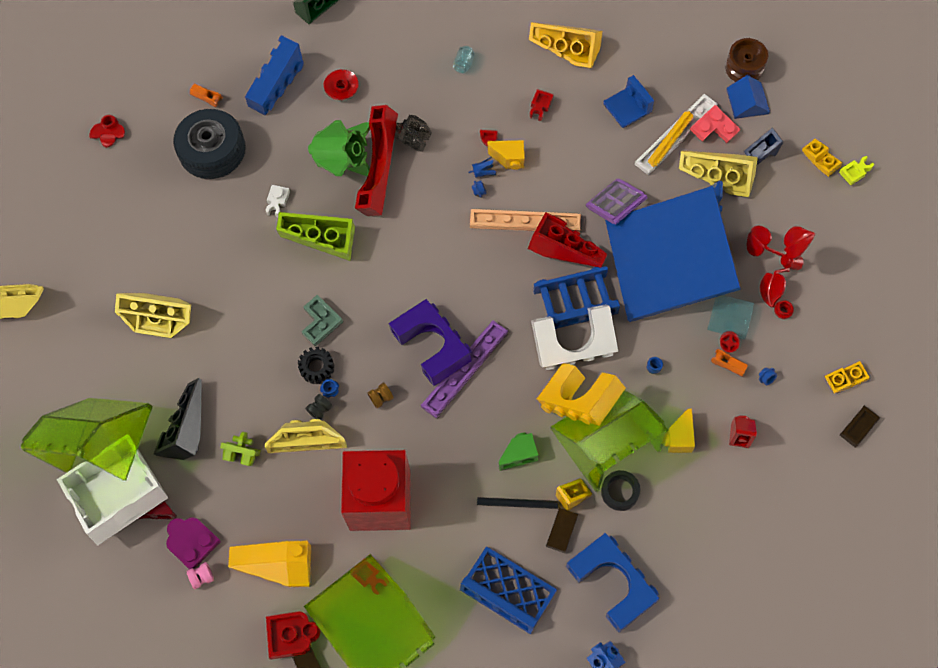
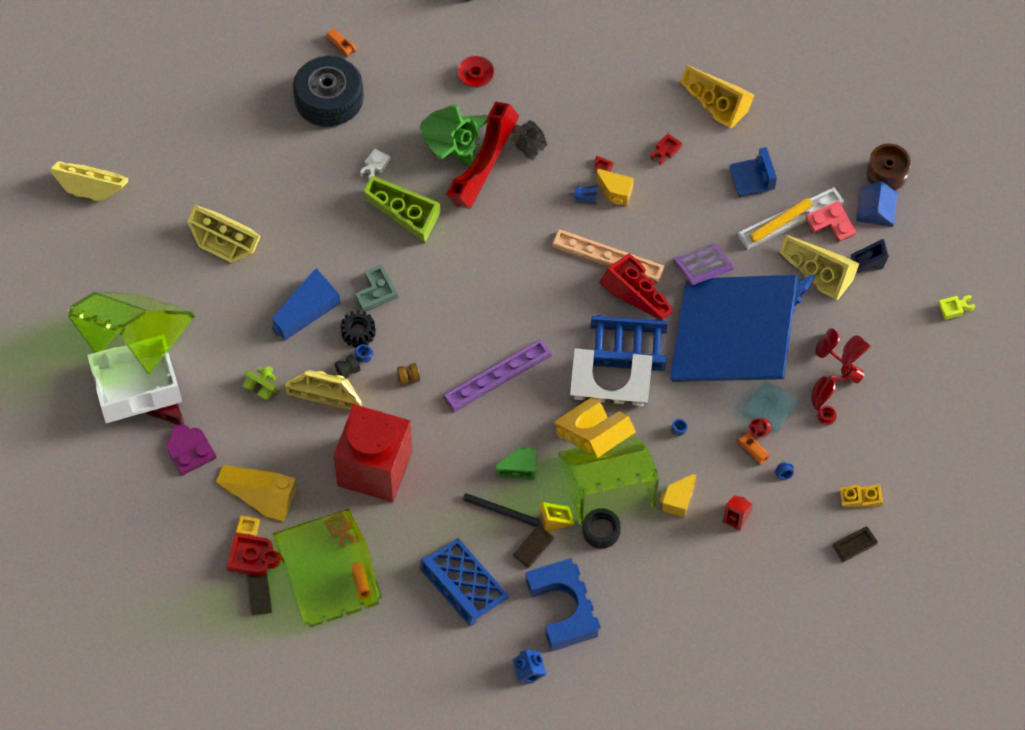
camera: 15 degrees right, 5 degrees down
(106, 132) = (233, 50): red plate -> none
(185, 428) = (217, 348): black wedge -> none
(203, 572) = (193, 480): bright pink wheel -> none
(257, 358) = (306, 305): none -> blue slope
(275, 76) = (414, 44): blue wedge -> none
(275, 604) = (248, 525): none -> yellow tile
(408, 626) = (360, 580): none -> orange bar
(425, 318) = (475, 317): dark purple arch -> none
(463, 59) = (606, 82): clear light blue brick -> none
(478, 188) = (574, 212): blue plate -> none
(819, 156) = (926, 284): yellow slope -> none

